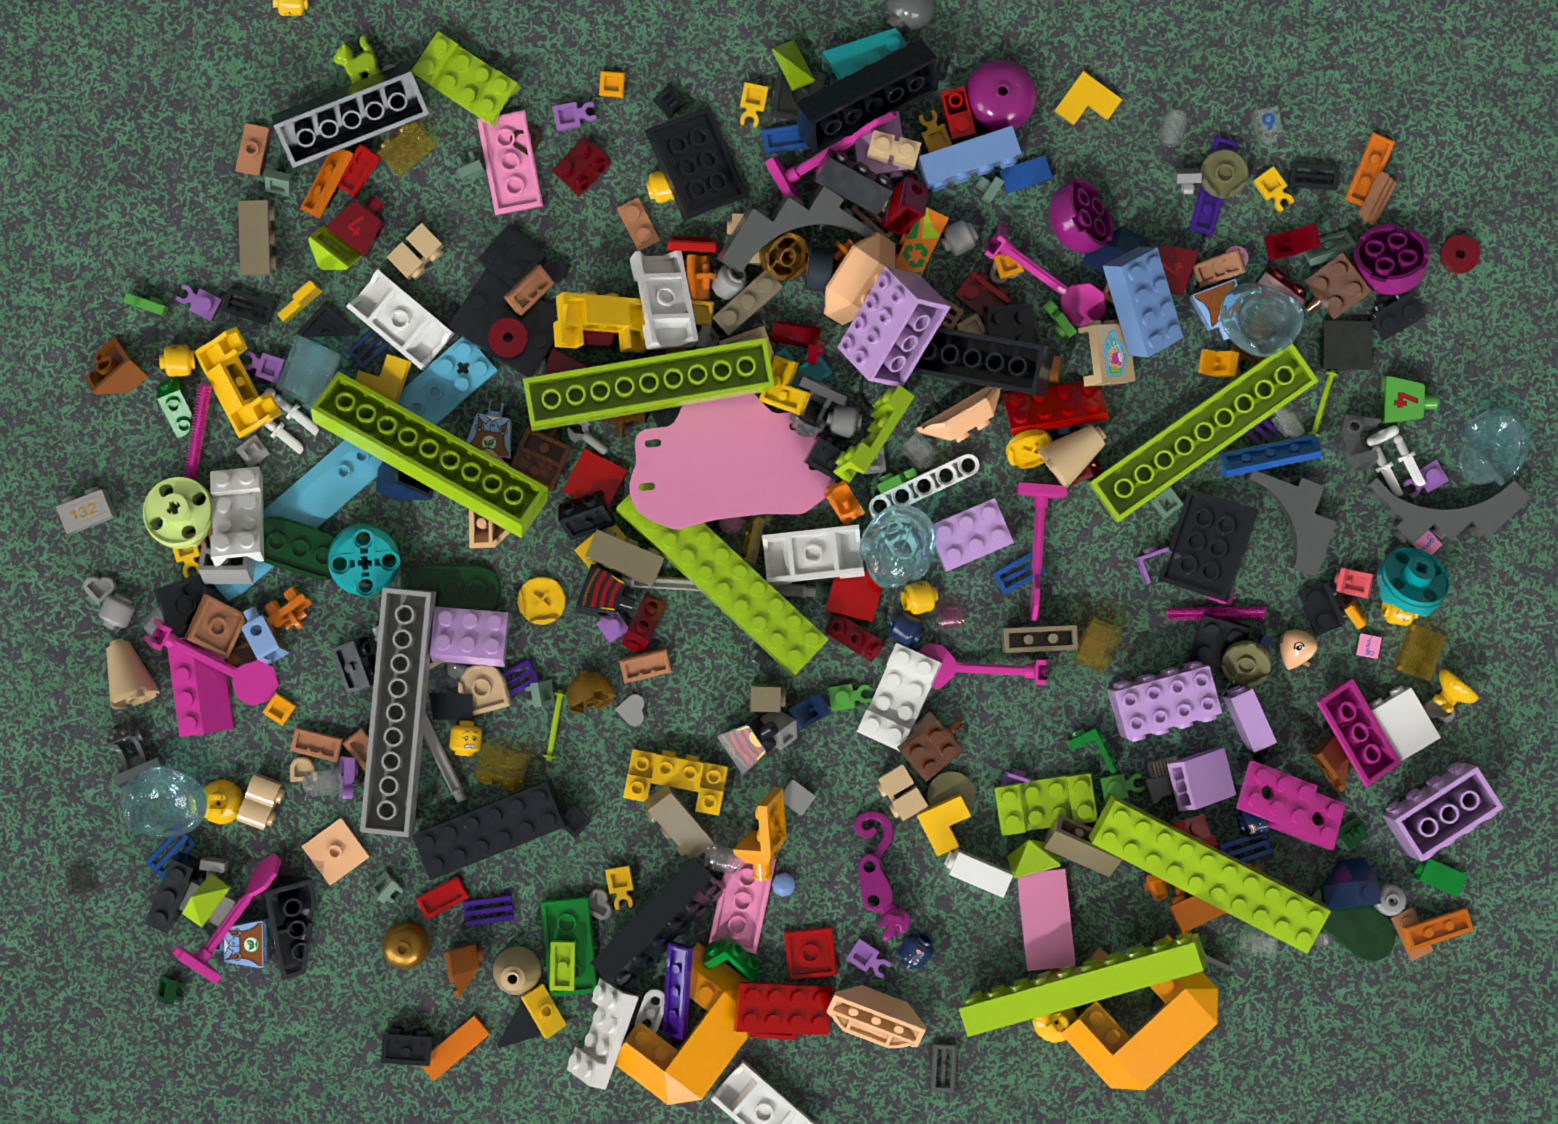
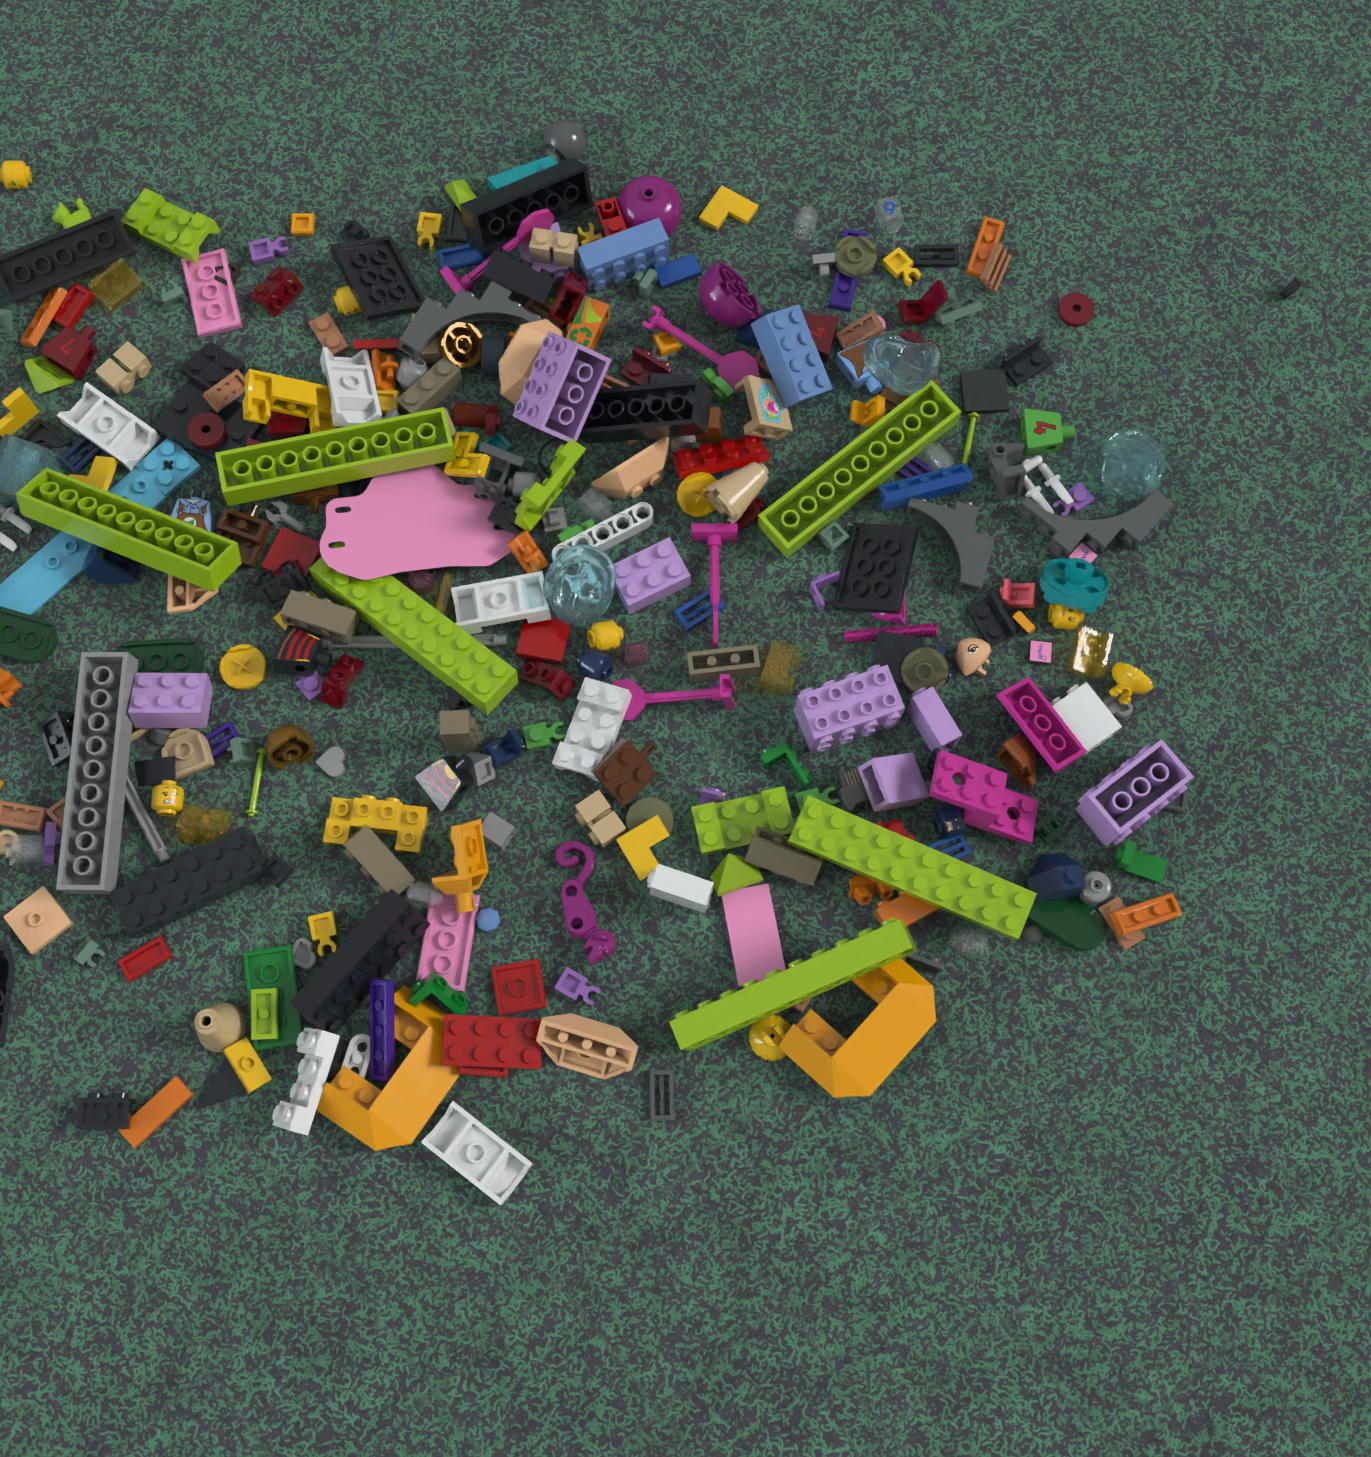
camera: 15 degrees left, 15 degrees down
(372, 567) = (56, 625): teal piece -> none
(405, 945) = (106, 1009): pearl gold cylinder -> none
(462, 964) = (162, 1022): dark orange slope -> none
(467, 913) = (171, 971): dark purple tile -> none
(644, 665) = (343, 718): nougat plate -> none
(916, 950) = (624, 975): dark blue head -> none
(959, 237) = (621, 325): light grey head -> none
(1337, 286) = (969, 337): reddish brown plate -> none
(1397, 269) = (1014, 311): magenta cylinder -> none

